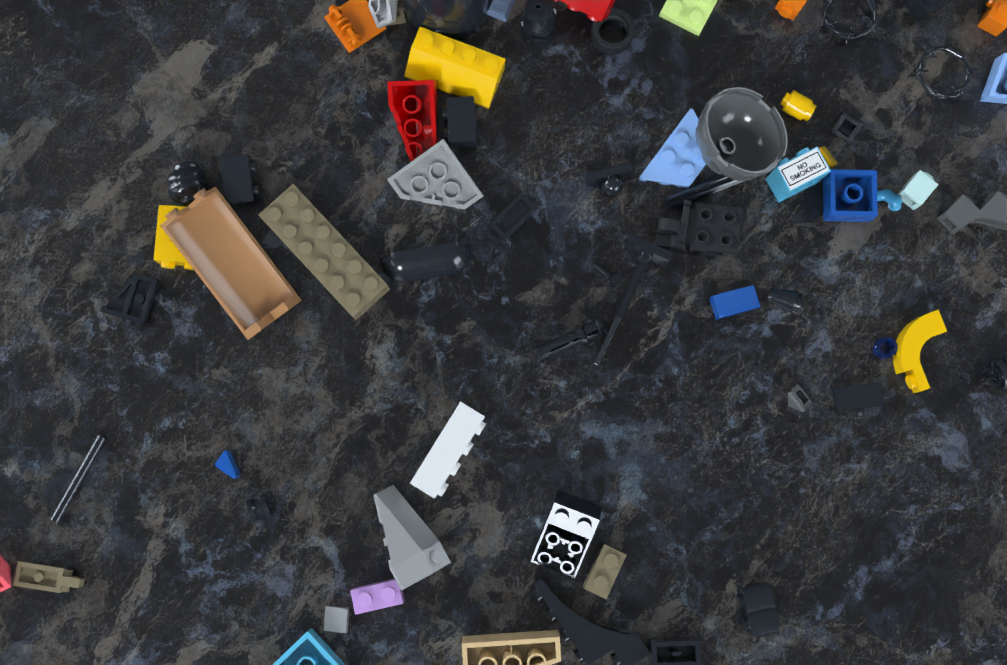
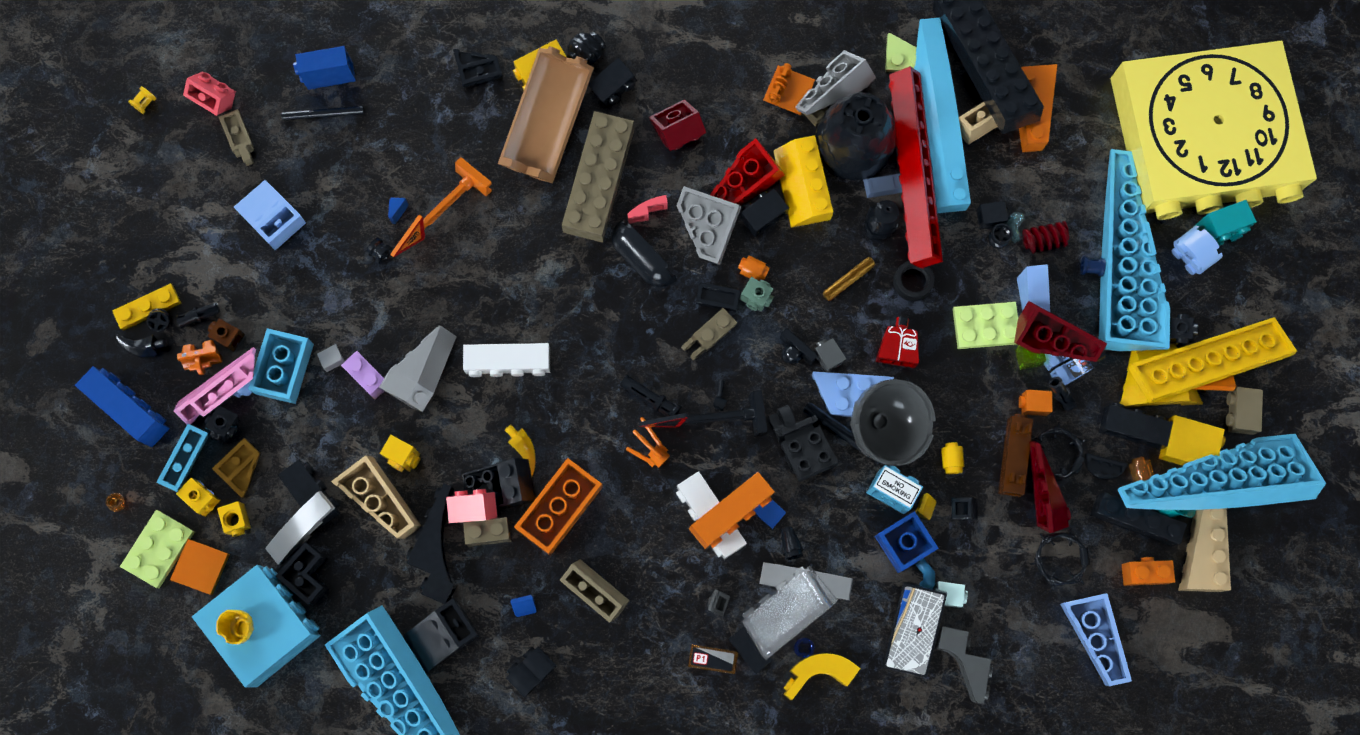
camera: 60 degrees right, 5 degrees down
(34, 448) = (324, 67): none -> blue brick
(151, 594) = (270, 214): none -> light blue slope
(245, 375) = (471, 178): none -> orange piece
(321, 145) = (678, 125): none -> dark red slope
(387, 233) = (641, 212): none -> coral slope
(480, 609) = (400, 454): none -> yellow brick
(508, 167) = (753, 268): none -> orange brick
(536, 186) = (757, 294): none -> sand green brick
(538, 486) = (522, 444): none -> yellow bar
(543, 245) = (710, 333): none -> dark tan hinge
(573, 89) = (849, 278): none -> pearl gold axle
(574, 571) = (471, 507): none -> brick
(623, 489) = (558, 506): none -> orange brick
(628, 367) = (657, 455): none -> orange plant
(635, 151) = (829, 354): none -> dark grey brick
(665, 83) = (899, 345): none -> red torso
(692, 578) = (523, 605): none -> blue slope
(718, 353) = (701, 500): none -> white brick
(722, 504) = (594, 590): none -> dark tan brick
(730, 332) = (732, 510): none -> orange brick
(829, 307) = (775, 574): none -> light grey slope
(830, 49) = (1015, 455): none -> reddish brown brick
(847, 435) = (713, 659): none -> slope
(853, 340) = (788, 611): none -> clear windscreen
(890, 48) = (1050, 505): none -> dark red wedge
(931, 239) = (914, 629): none -> tile

